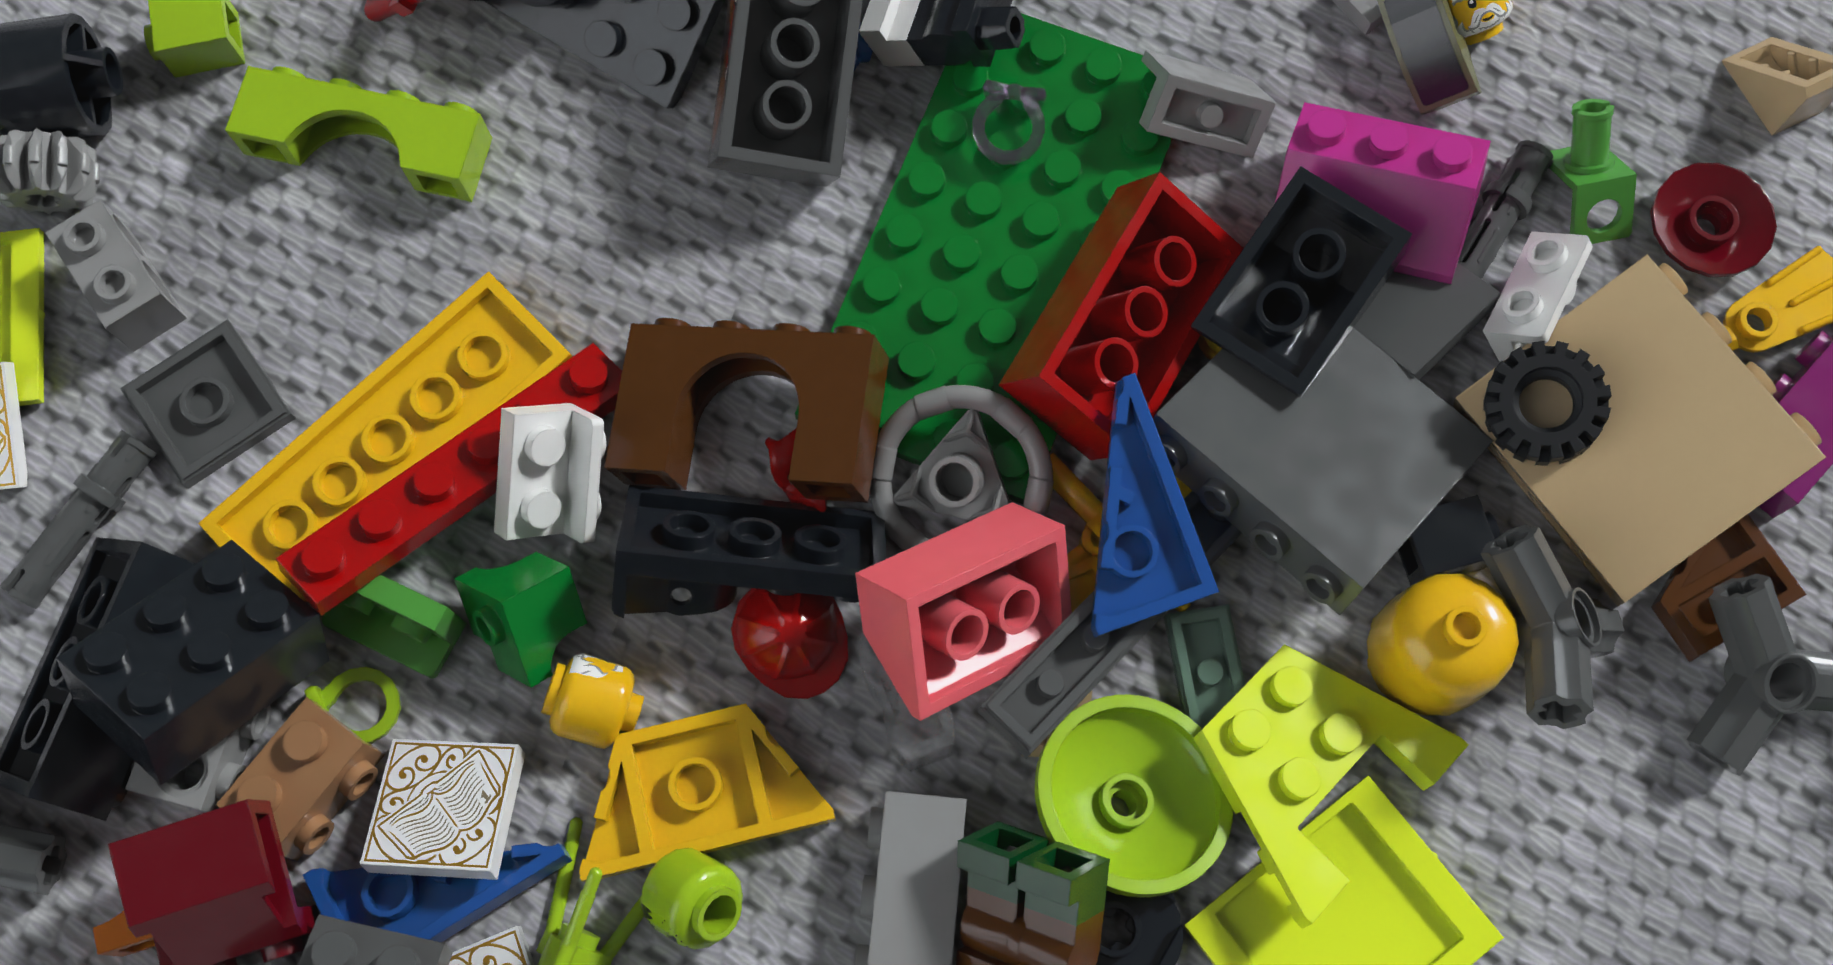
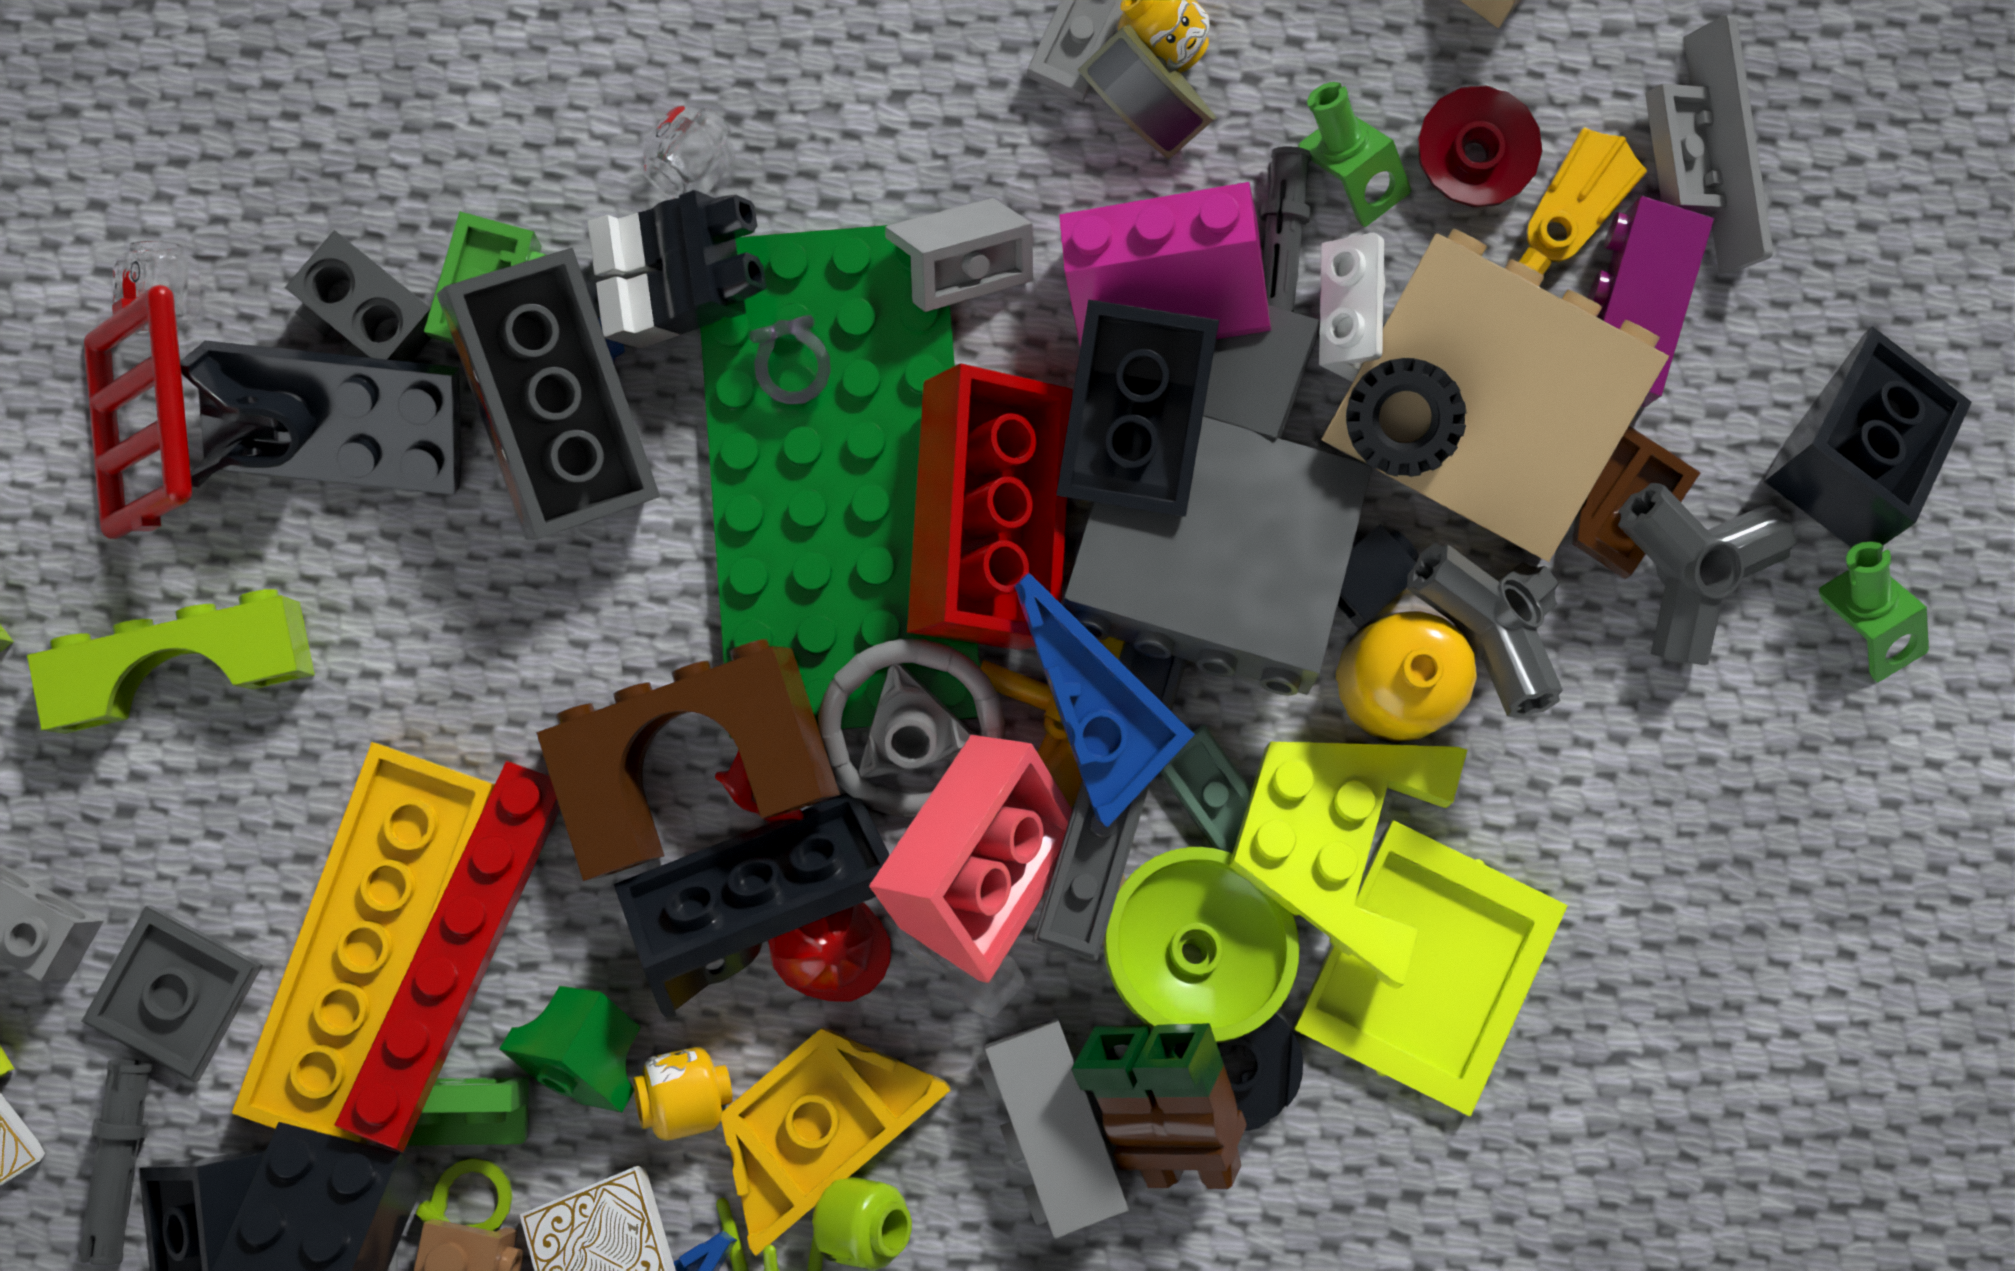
camera: 30 degrees left, 10 degrees up
(549, 472) = (535, 910): white bracket -> none

